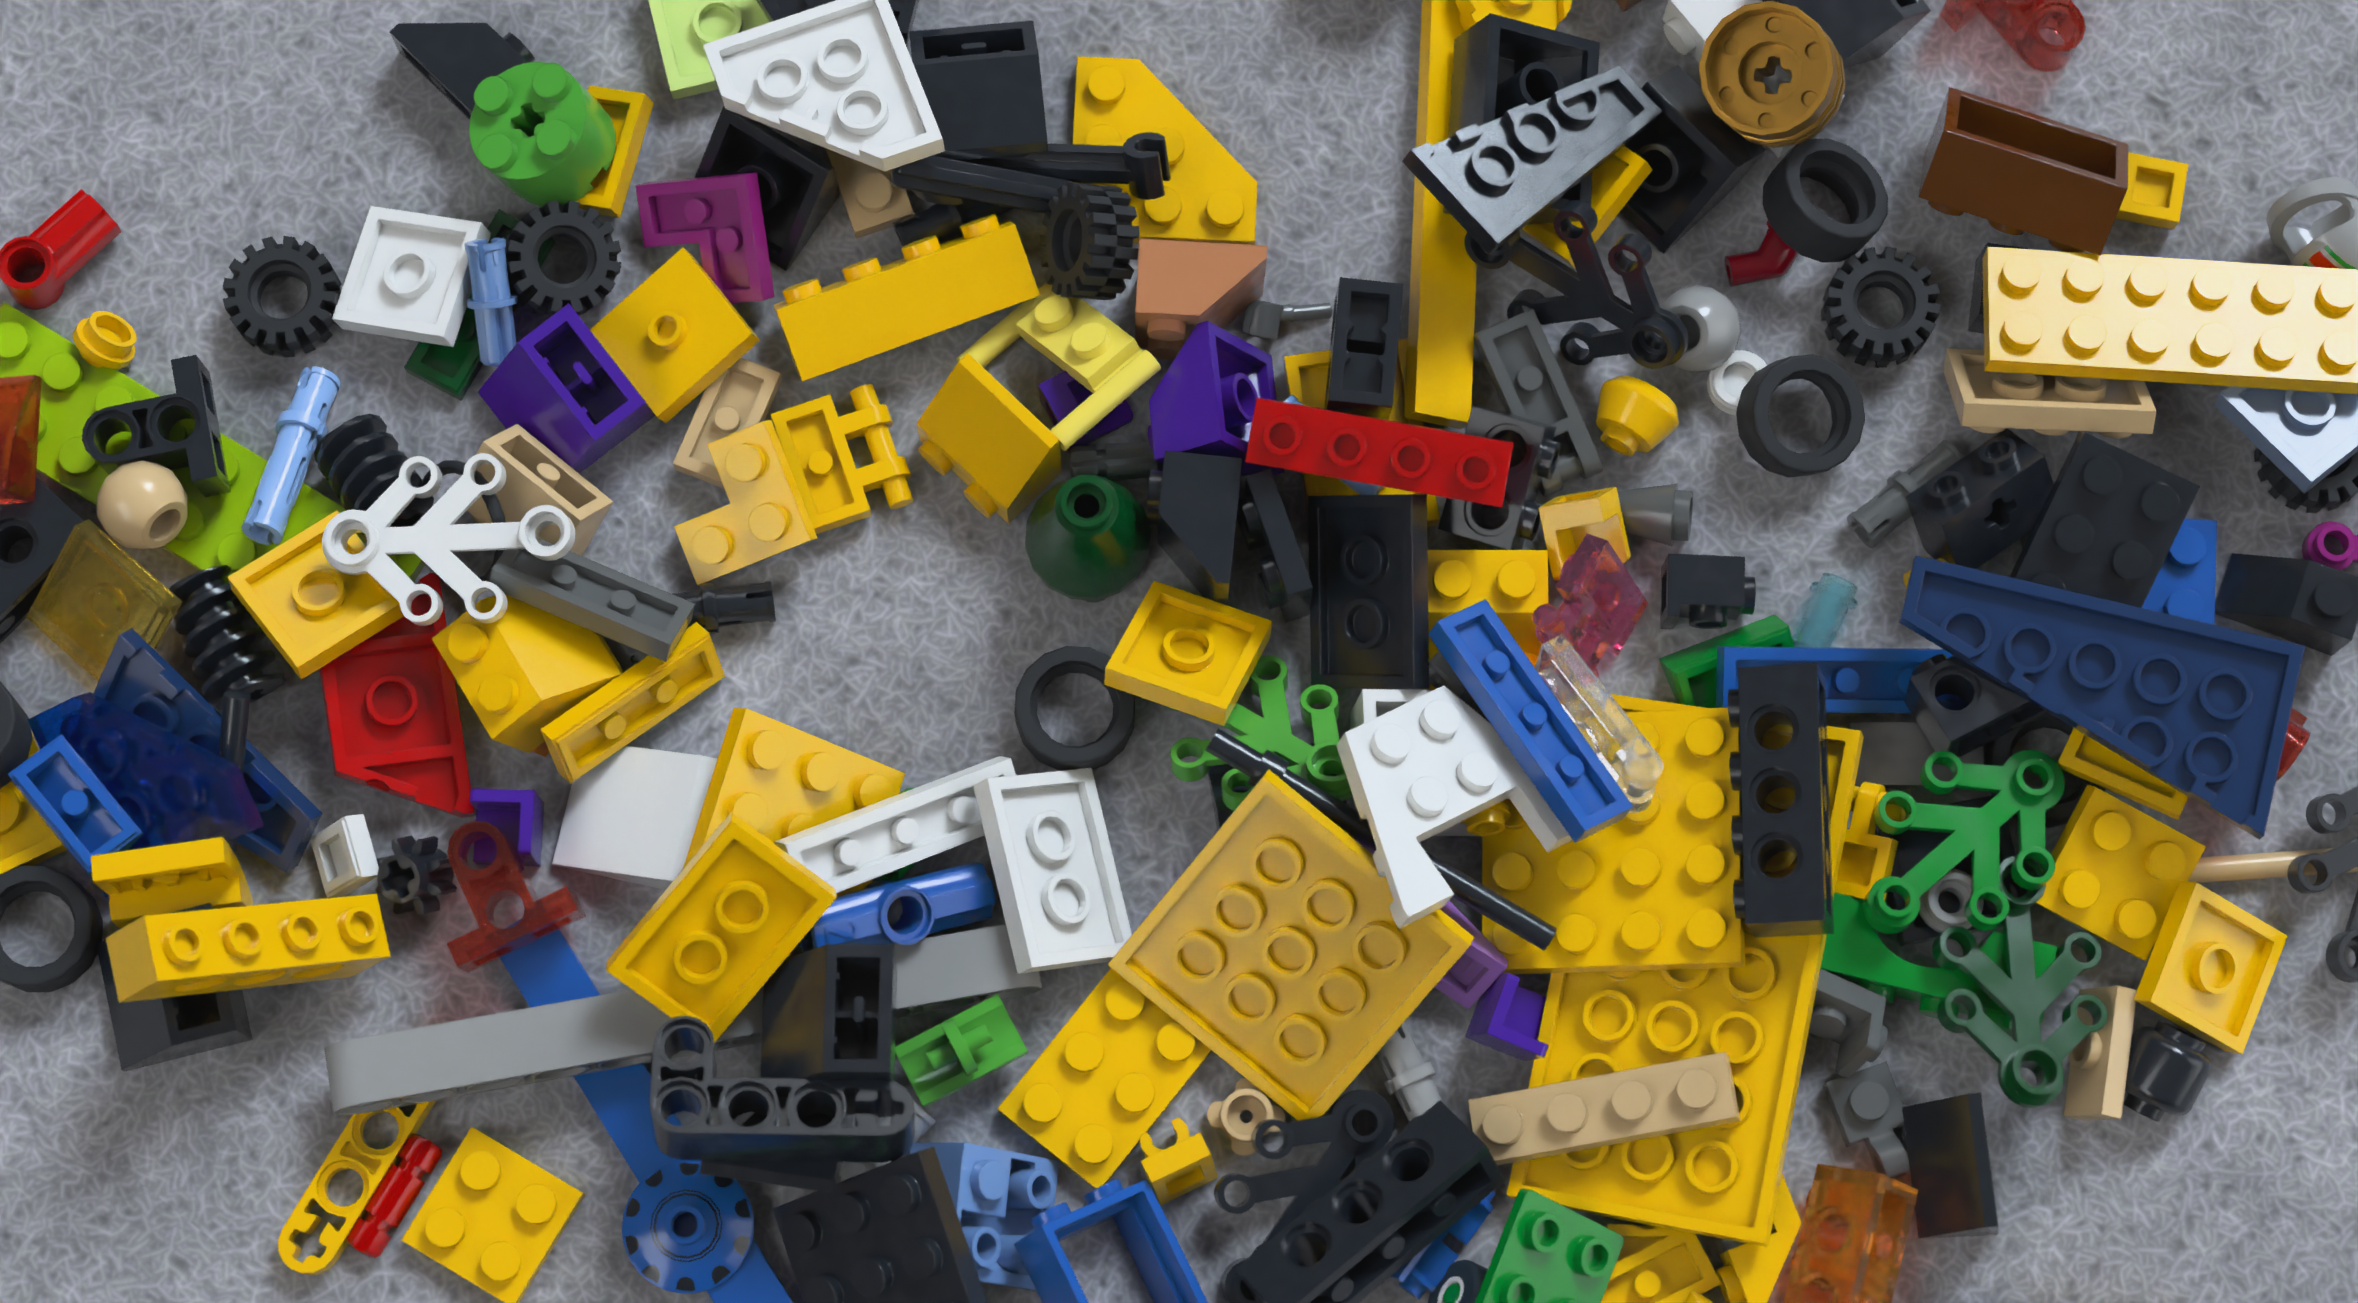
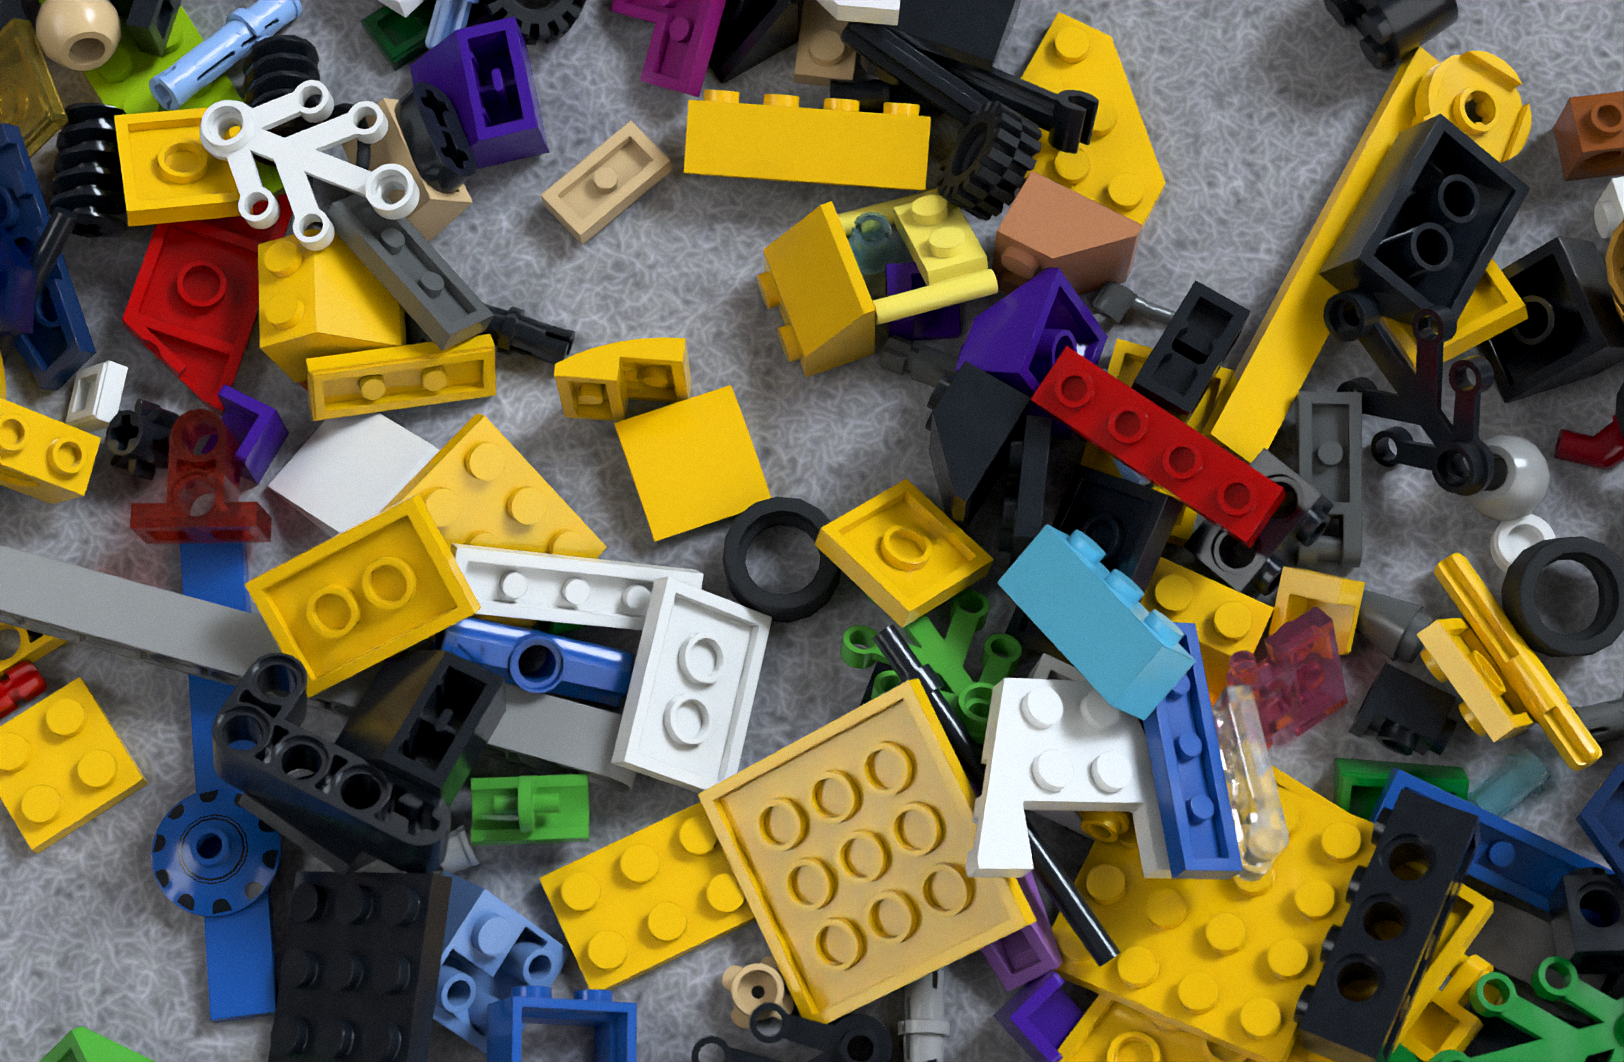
camera: 30 degrees right, 5 degrees down
(551, 457) = (435, 138): none -> black beam
(674, 335) = (596, 90): yellow plate -> none
(763, 510) = (597, 266): yellow plate -> none
(823, 465) = (668, 256): yellow plate -> none
(827, 620) = (604, 377): none -> yellow slope
(945, 656) = (692, 462): none -> yellow slope
(1015, 354) = (871, 242): none -> clear light blue pin
(1087, 555) = (868, 414): dark green cone -> none
(1178, 1167) = (672, 1007): yellow tile -> none
(1400, 639) = (1098, 620): none -> medium azure brick
(1522, 163) = (1418, 251): wing -> none
(1634, 415) = (1412, 529): yellow cone -> none
(1737, 519) = (1459, 656): none -> yellow plate
(1782, 496) = (1518, 663): none -> yellow axle

